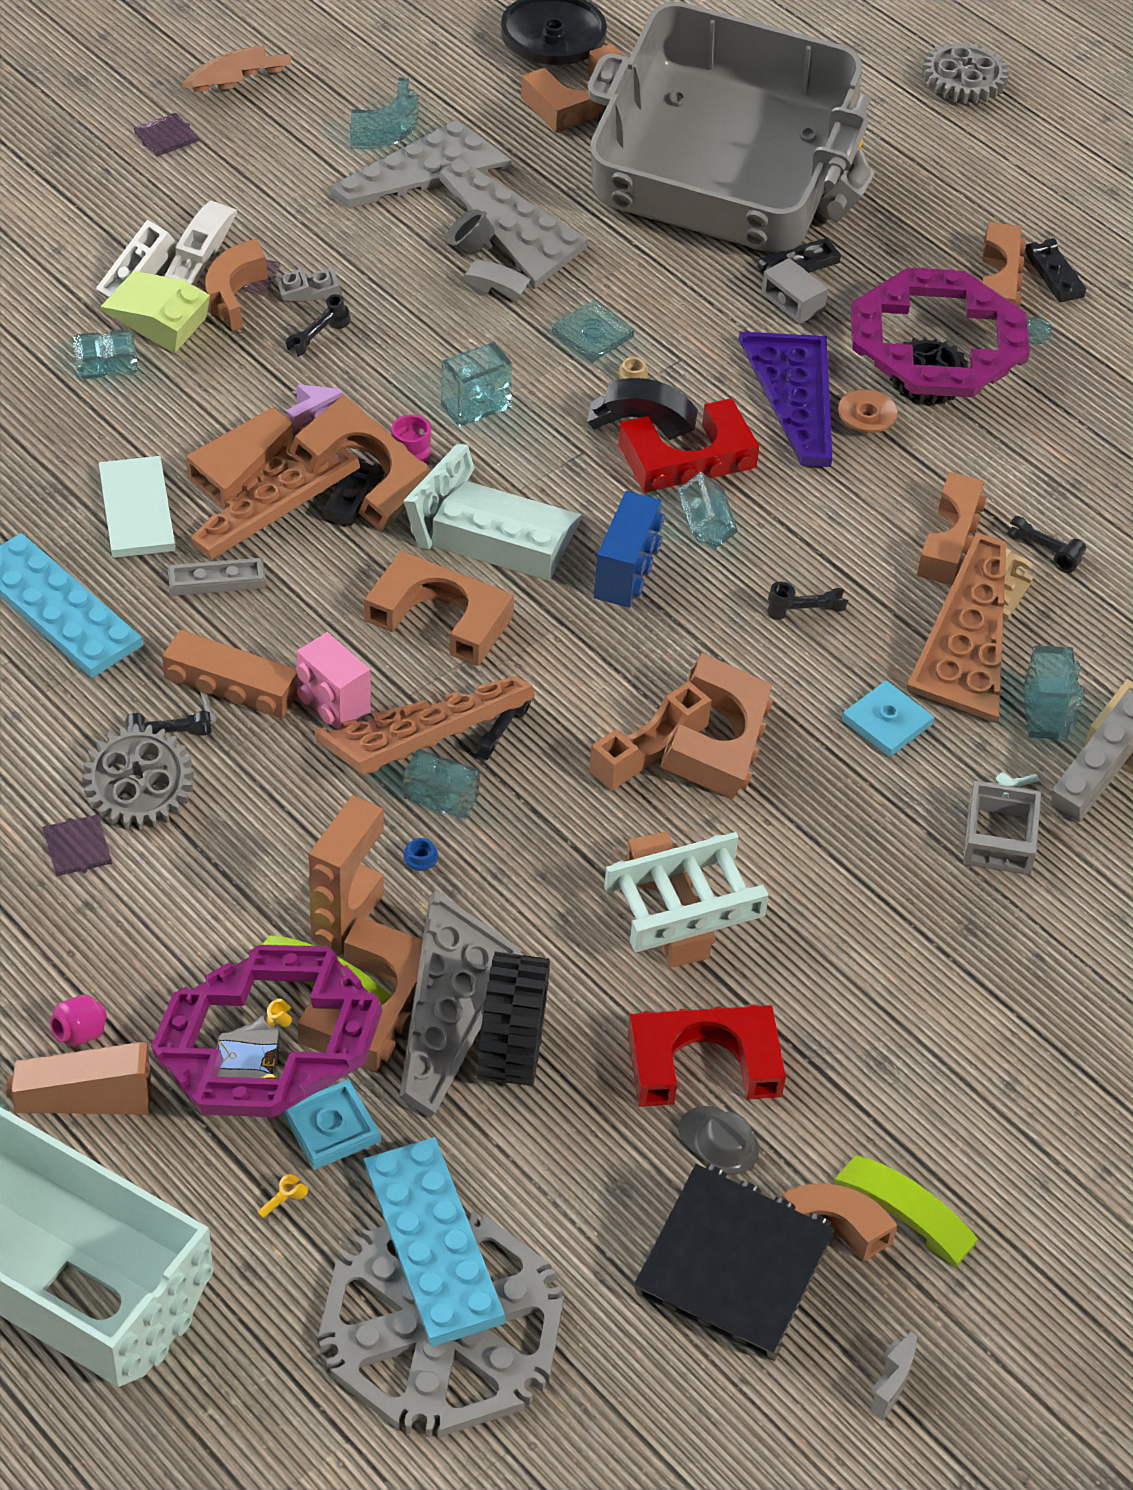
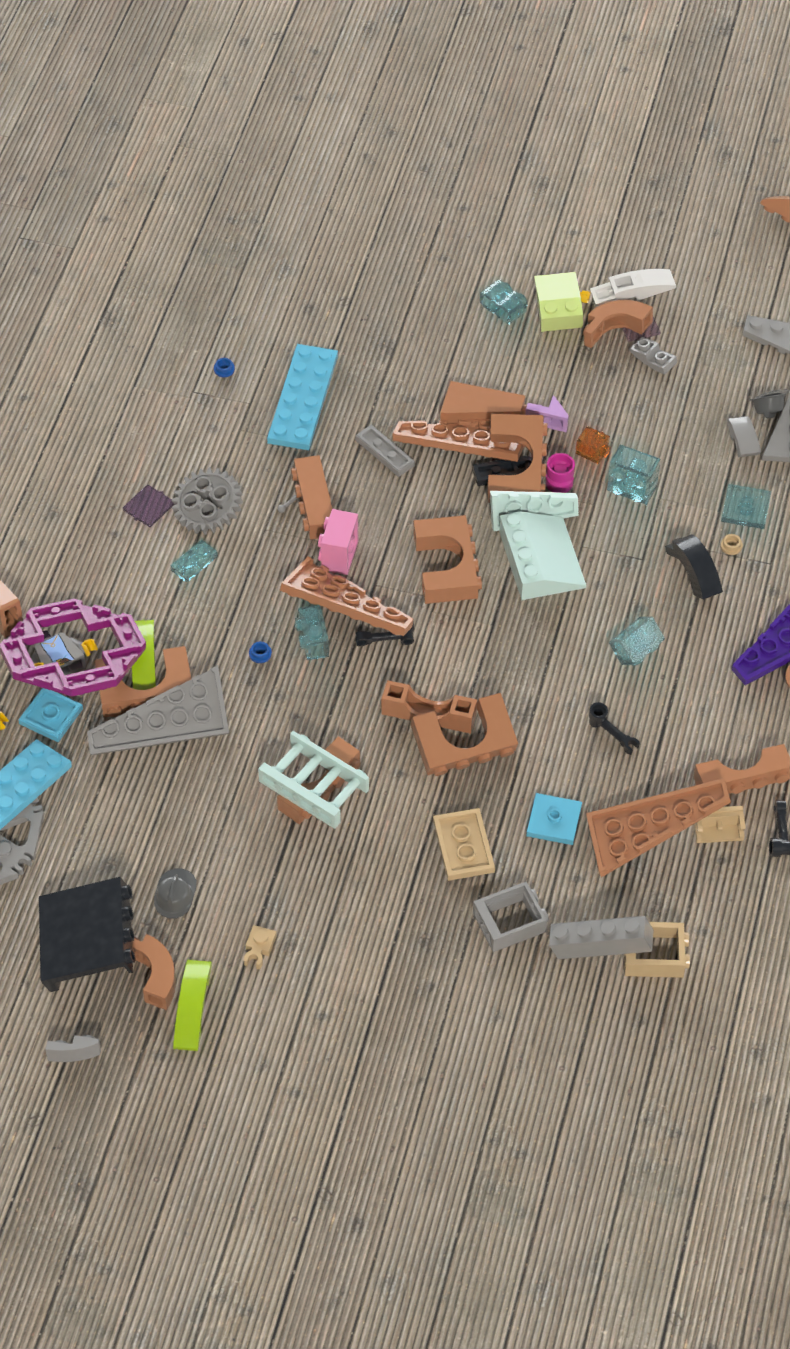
camera: 60 degrees right, 5 degrees up
(78, 1020) = (32, 572): dark pink head -> none
(136, 507) = (404, 386): light aqua tile -> none
(147, 253) = (593, 270): white slope -> none
(166, 134) = (718, 218): clear purple piece -> none
(194, 723) = (246, 484): black brick -> none
(213, 845) = (194, 560): none -> clear light blue plate
(336, 316) = (638, 379): black brick -> none
(337, 881) = (185, 601): nougat arch -> none
(392, 397) = (593, 445): none -> clear orange brick
(513, 1018) = (158, 746): black tyre -> none
(628, 549) = (564, 618): blue brick -> none
(663, 467) = (704, 626): red arch -> none
(745, 1031) = (215, 826): red arch -> none
(864, 1089) = (258, 944): none -> tan plate
(865, 815) = (463, 844): none -> tan plate
(1006, 780) = (551, 907): light aqua hand -> none
(1052, 692) = (636, 887): clear light blue brick -> none

